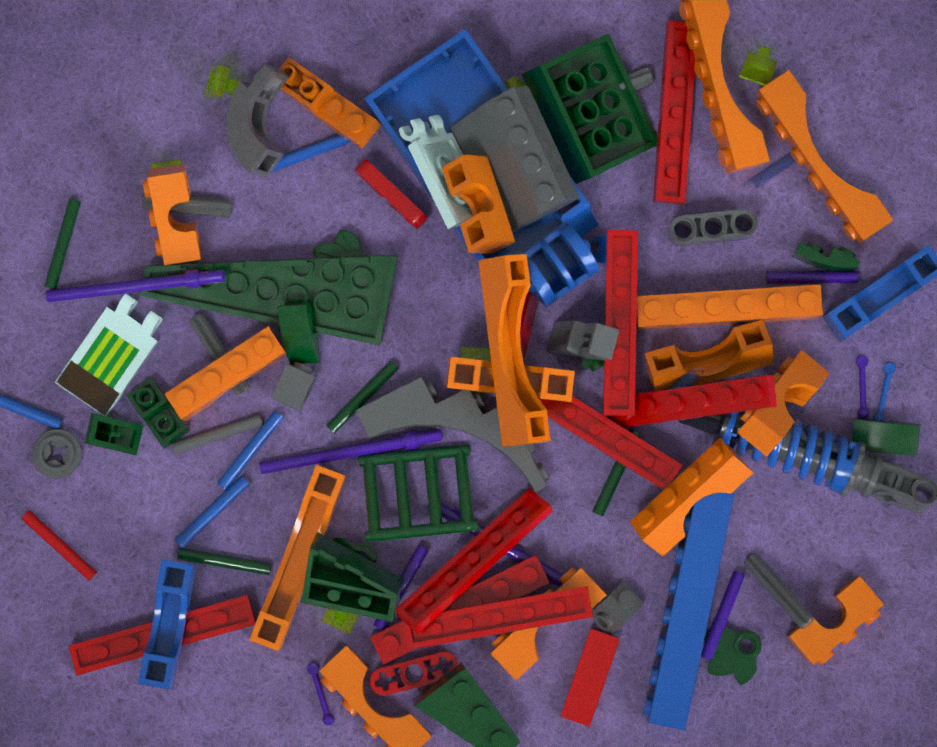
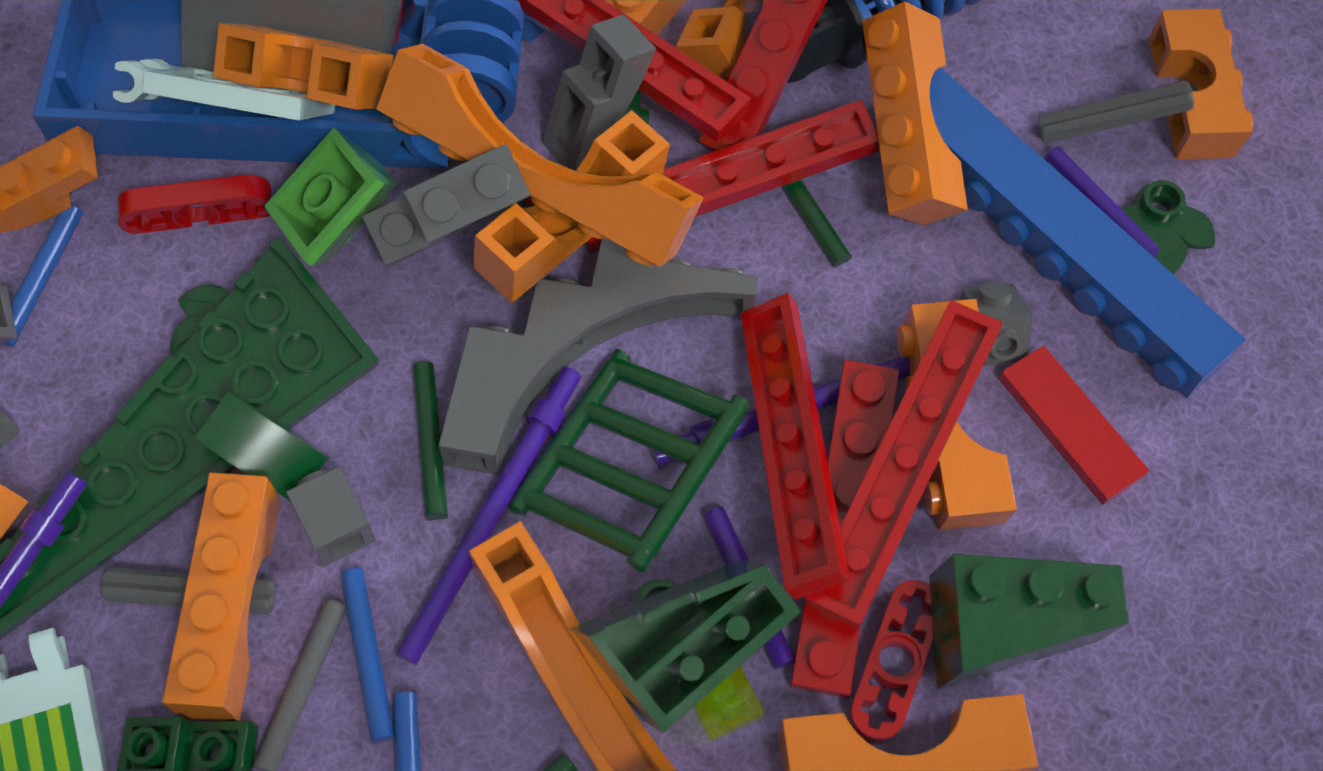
camera: 55 degrees left, 20 degrees down
(432, 265) = (329, 196): none -> bright green slope
(458, 326) = (446, 205): none -> dark grey arch

